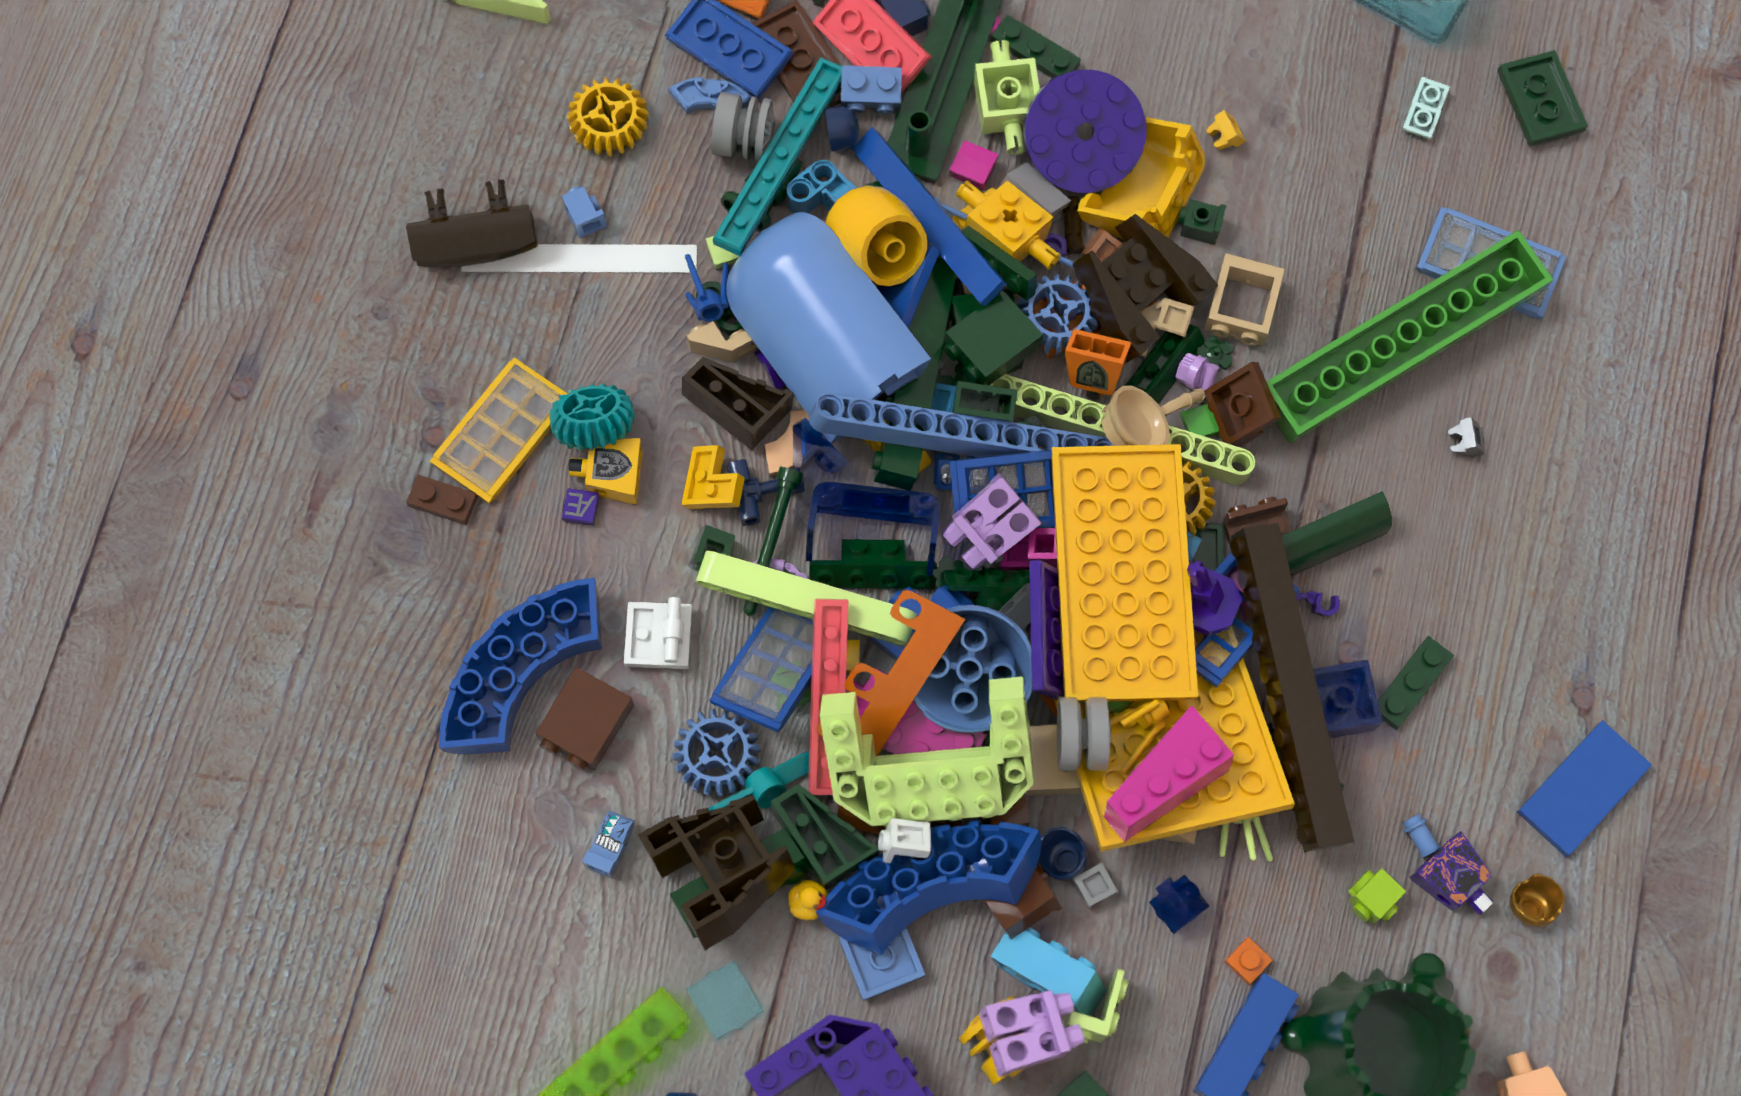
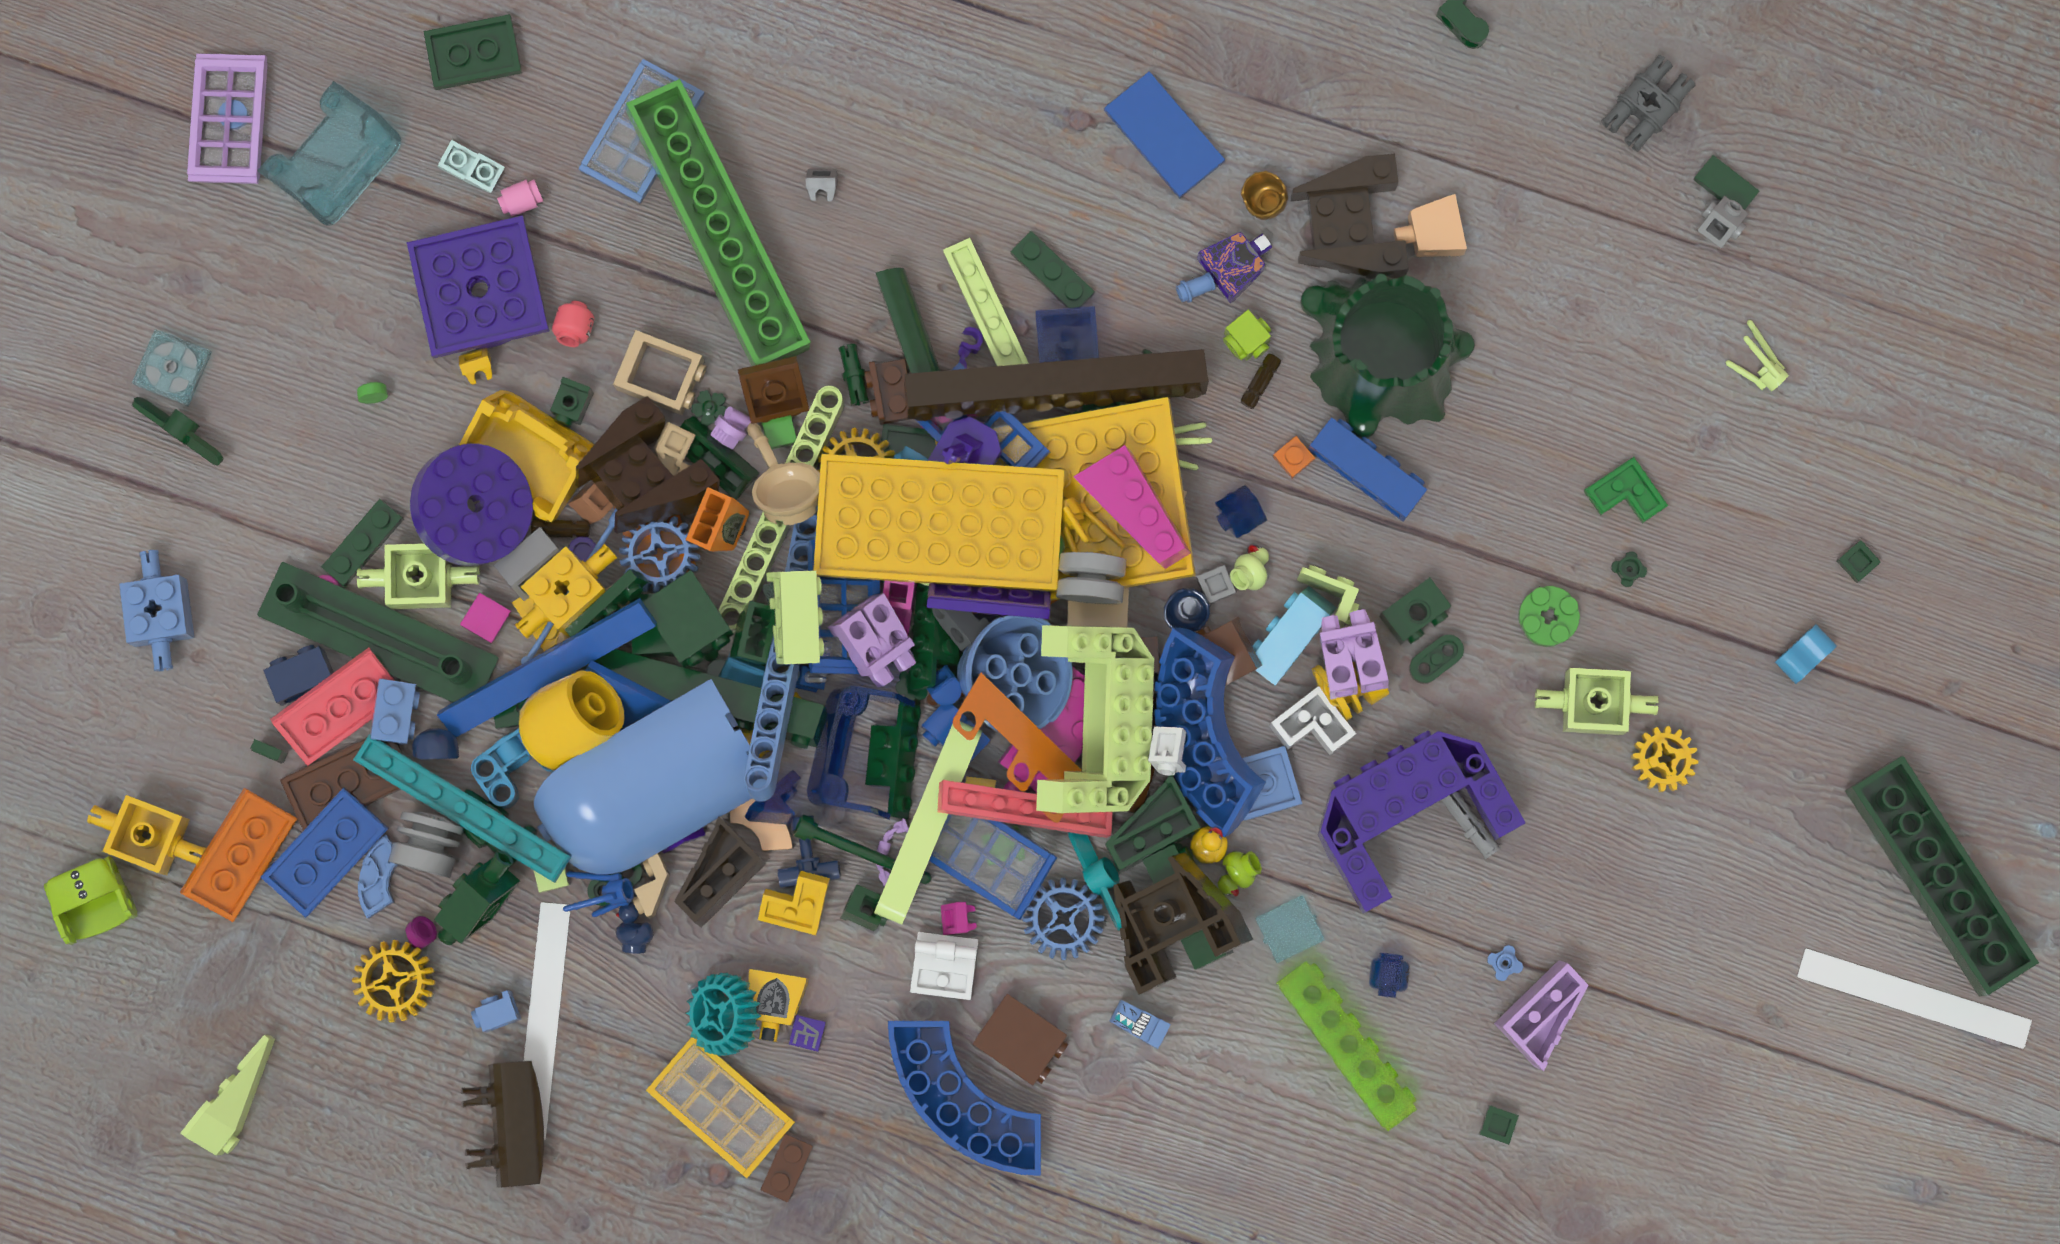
camera: 80 degrees left, 10 degrees up
(658, 136) = (420, 932): none -> magenta tile
(669, 326) = (631, 934): none -> dark blue animal
(691, 174) = (476, 899): none -> dark green brick
(708, 641) = (955, 918): none -> dark pink tile
(782, 937) = (1241, 872): none -> lime animal
(960, 999) = (1316, 716): none -> white brick
(1003, 433) = (796, 617): none -> yellowish green wedge
(1116, 919) = (1250, 569): none -> yellowish green animal
(1184, 41) = (372, 393): none -> bright green tile
(1271, 488) = (853, 374): none -> dark green pin
(1281, 214) = (573, 324): none -> coral head
(1310, 93) = (453, 263): none -> dark purple piece
(1328, 916) = (1260, 381): none -> dark brown axle
(1367, 613) = (984, 304): none -> yellowish green plate
(1402, 154) = (519, 198): none -> bright pink brick
(1527, 992) = (1343, 219): none -> dark brown wedge

